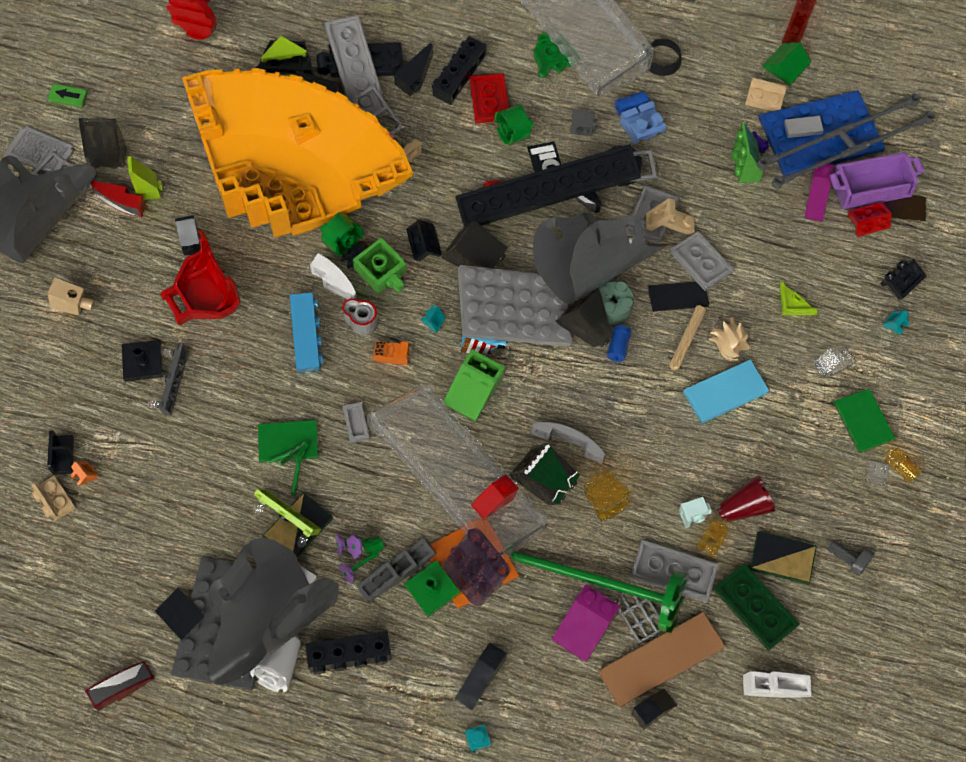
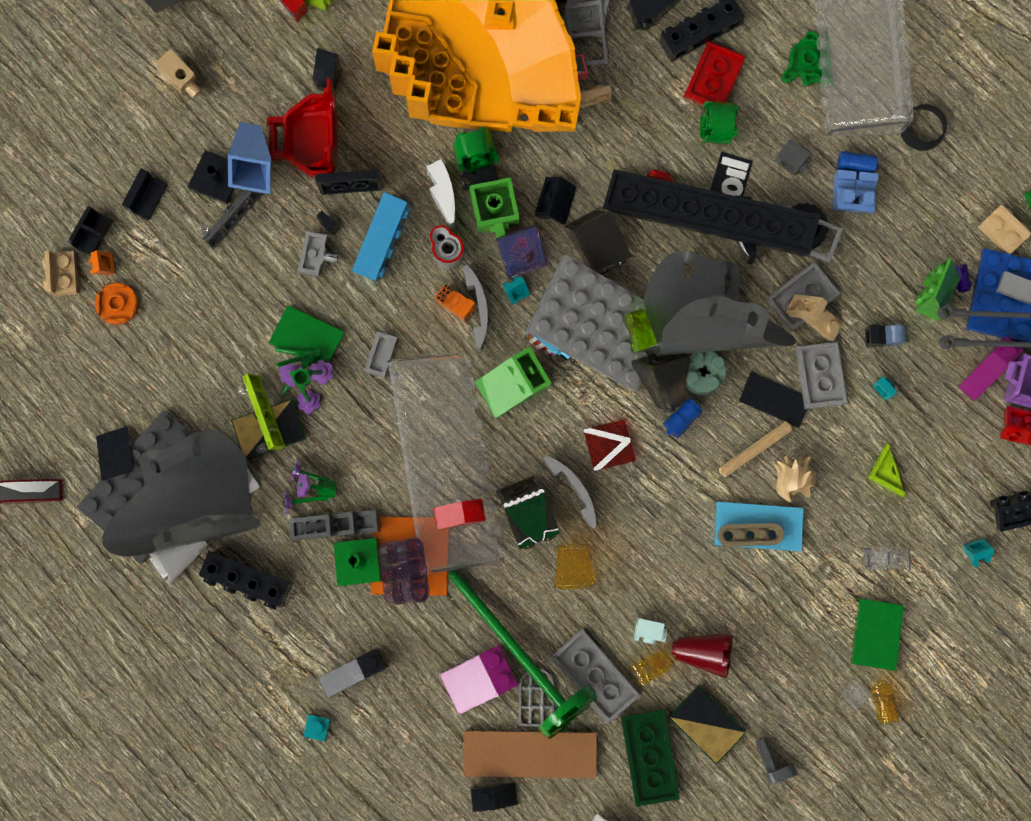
camera: 30 degrees right, 15 degrees up
(90, 403) = (144, 195): none -> black panel
(113, 497) = (116, 303): none -> orange tile
(169, 326) = (249, 160): none -> medium blue slope
(254, 346) = (327, 223): none -> black tile
(255, 305) = (349, 182): none -> black tile
(258, 375) = (314, 254): none -> light grey plate
(306, 464) = (298, 376): none -> medium lavender plant
(399, 331) = (473, 283): none -> light grey slope
(421, 288) = (521, 251): none -> clear purple tile
(549, 294) = (639, 330): none -> clear neon green leg
(576, 394) = (609, 445): none -> clear red tile
(729, 209) = (885, 335): none -> leg
(729, 392) = (759, 531): none -> dark tan plate
(753, 244) = (885, 388): none -> teal plate

